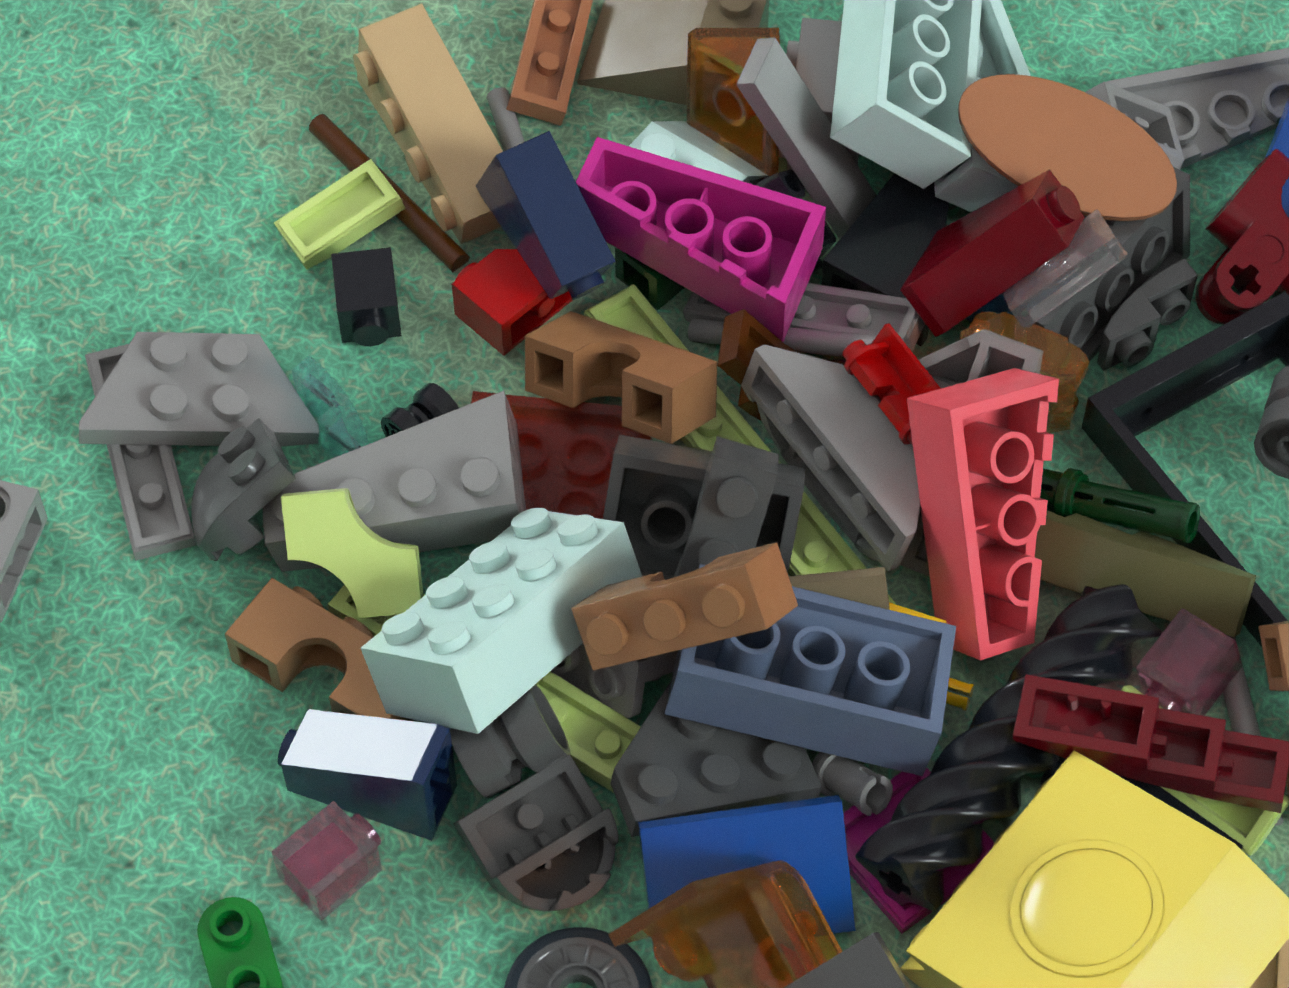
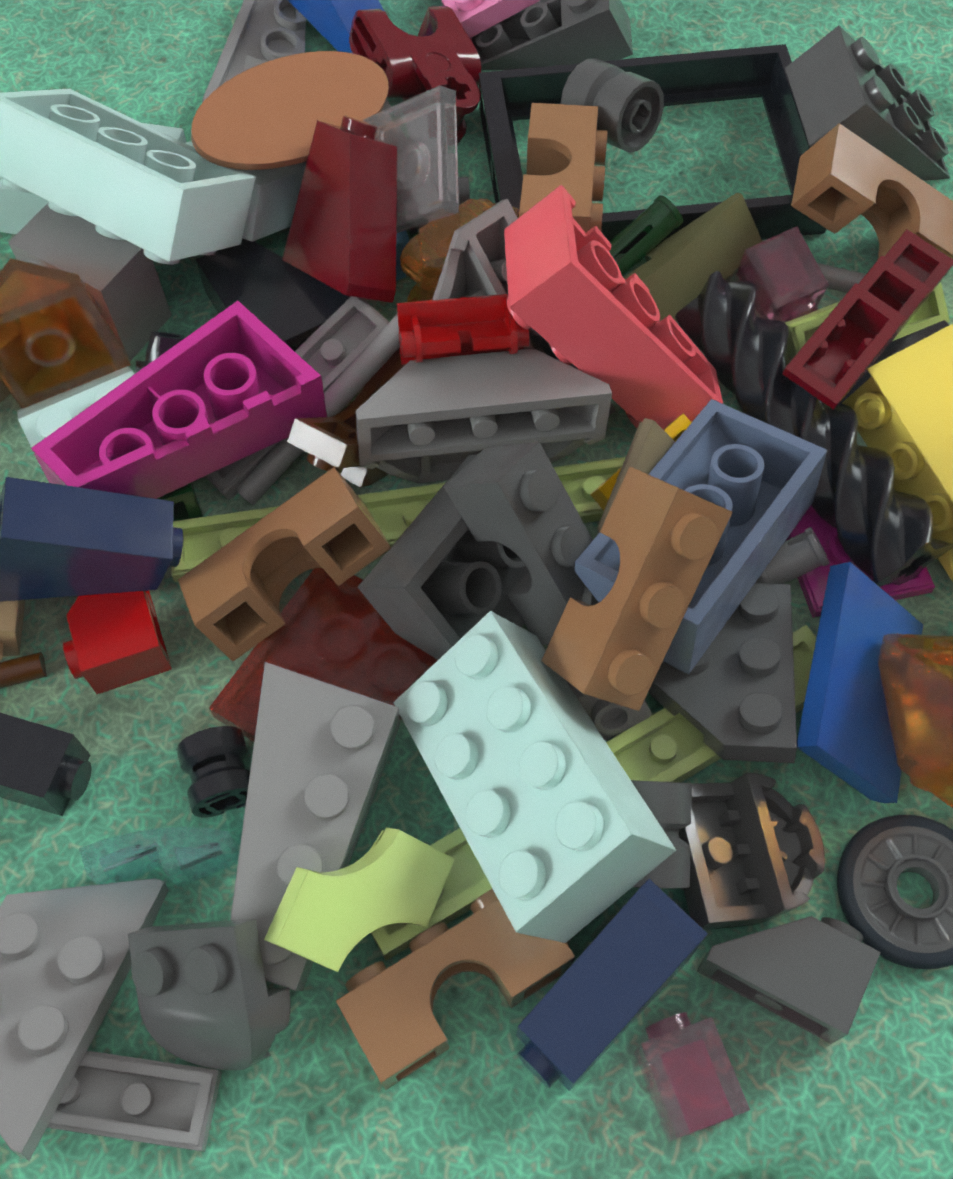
camera: 65 degrees left, 5 degrees up
(454, 915) = (799, 971): none -> dark grey slope
(803, 135) = (123, 286): light grey tile -> none
(1117, 427) = (564, 151): none -> medium nougat arch

